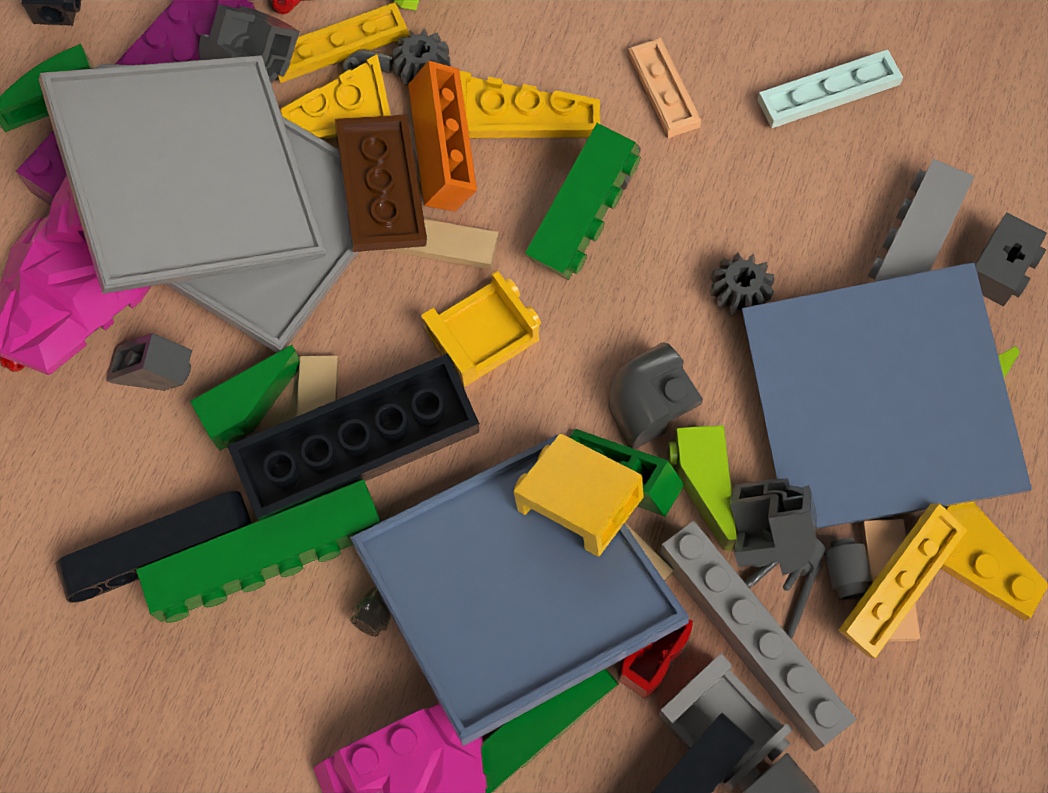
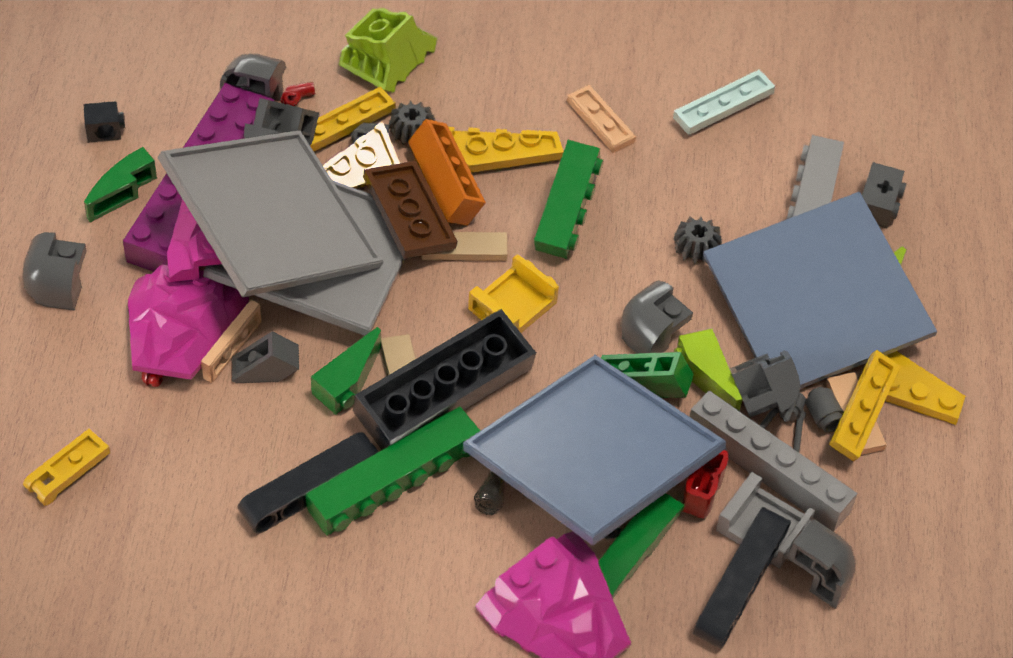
camera: 20 degrees left, 15 degrees down
(115, 329) = (231, 341): none -> light nougat tile
(580, 491) = (625, 378): yellow panel -> none

